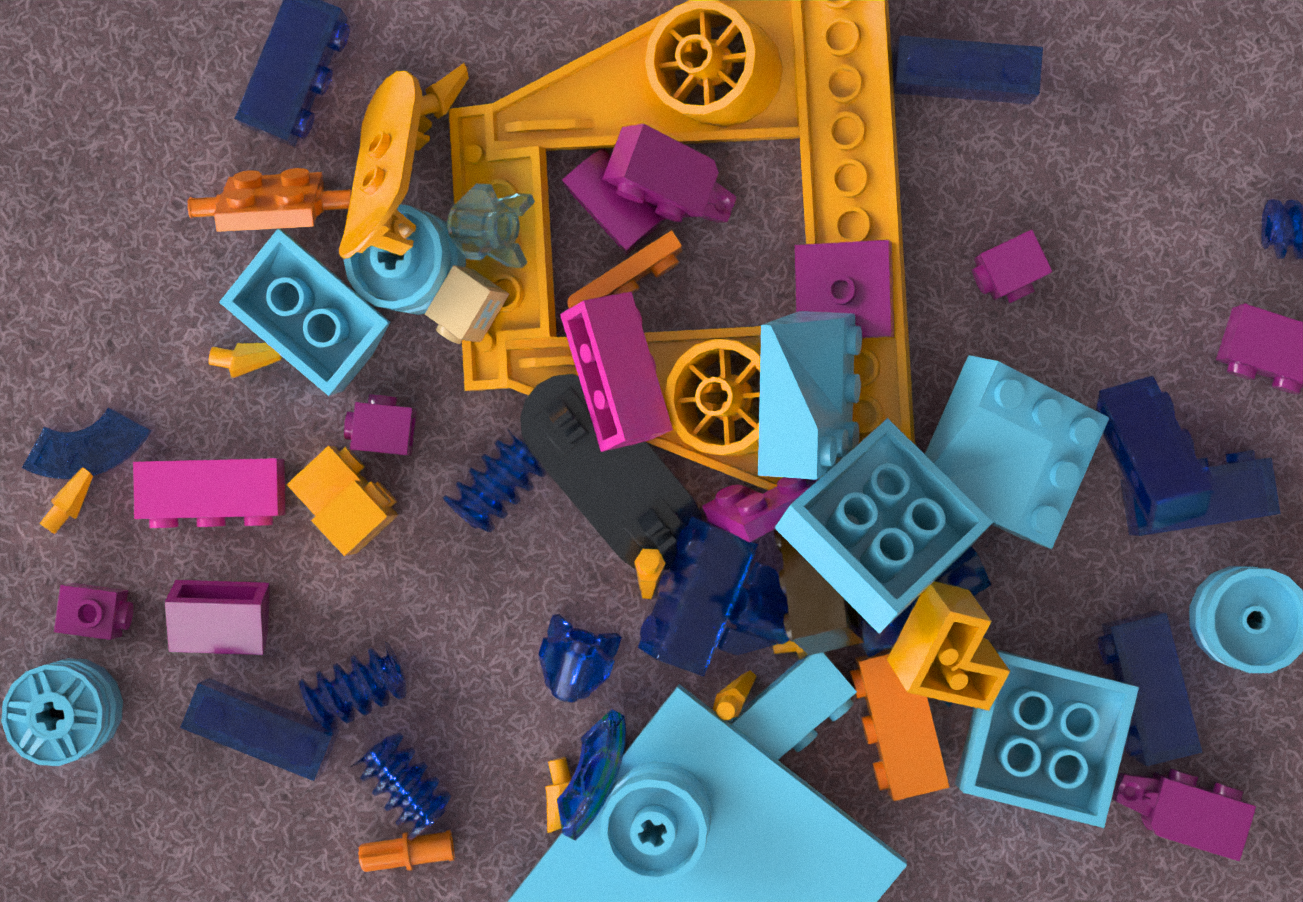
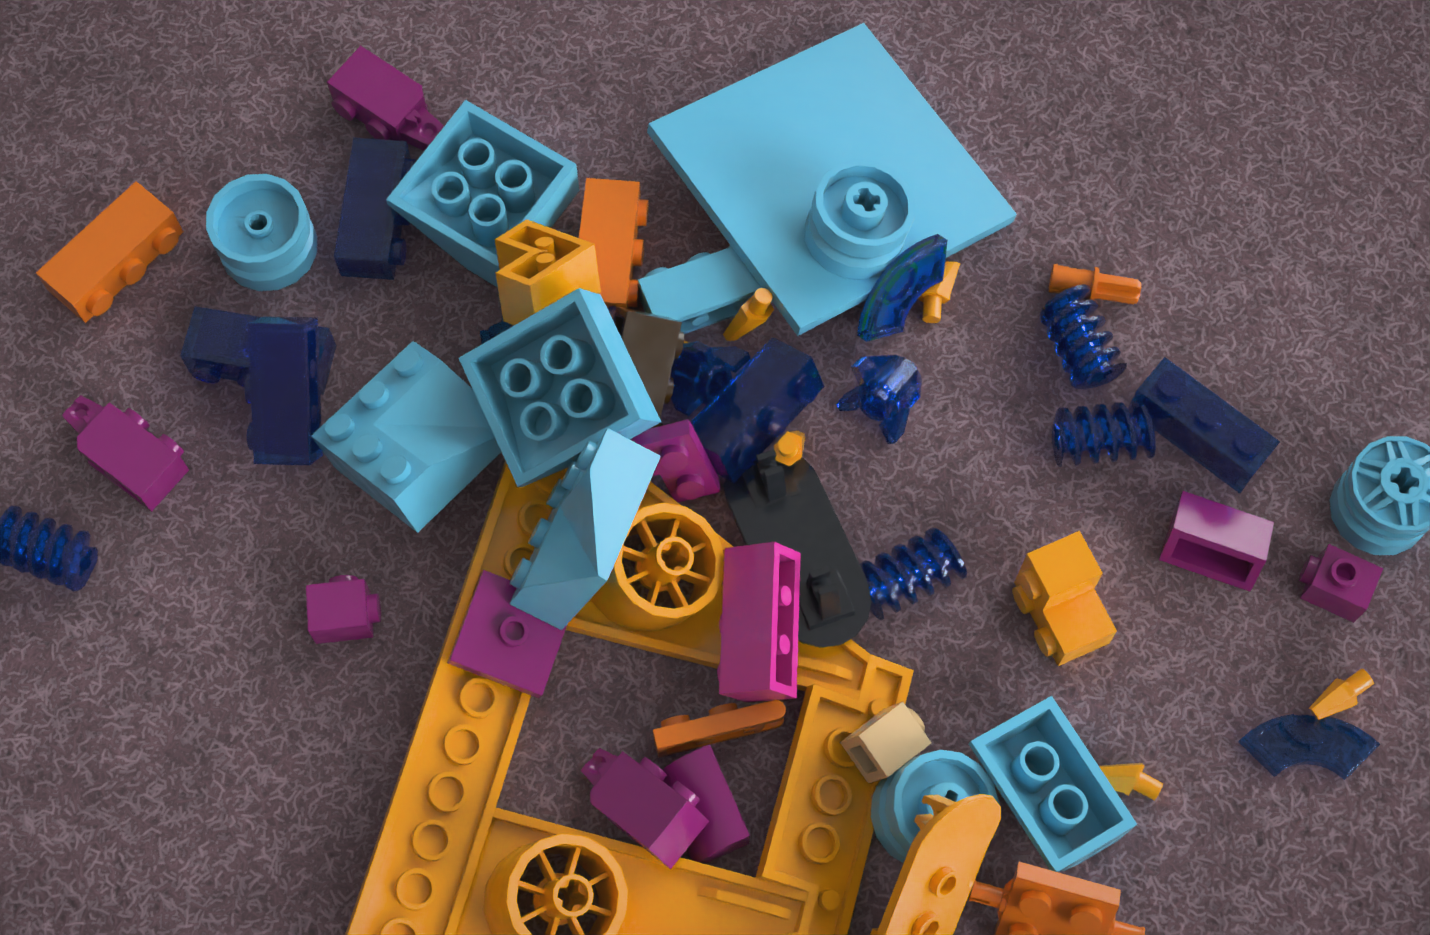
camera: 160 degrees left, 20 degrees down
(209, 491) = (1195, 658): dark pink brick -> none
(381, 426) = (1007, 662): magenta brick -> none
(489, 225) = (840, 806): clear light blue brick -> none
(966, 69) = (304, 812): clear blue brick -> none

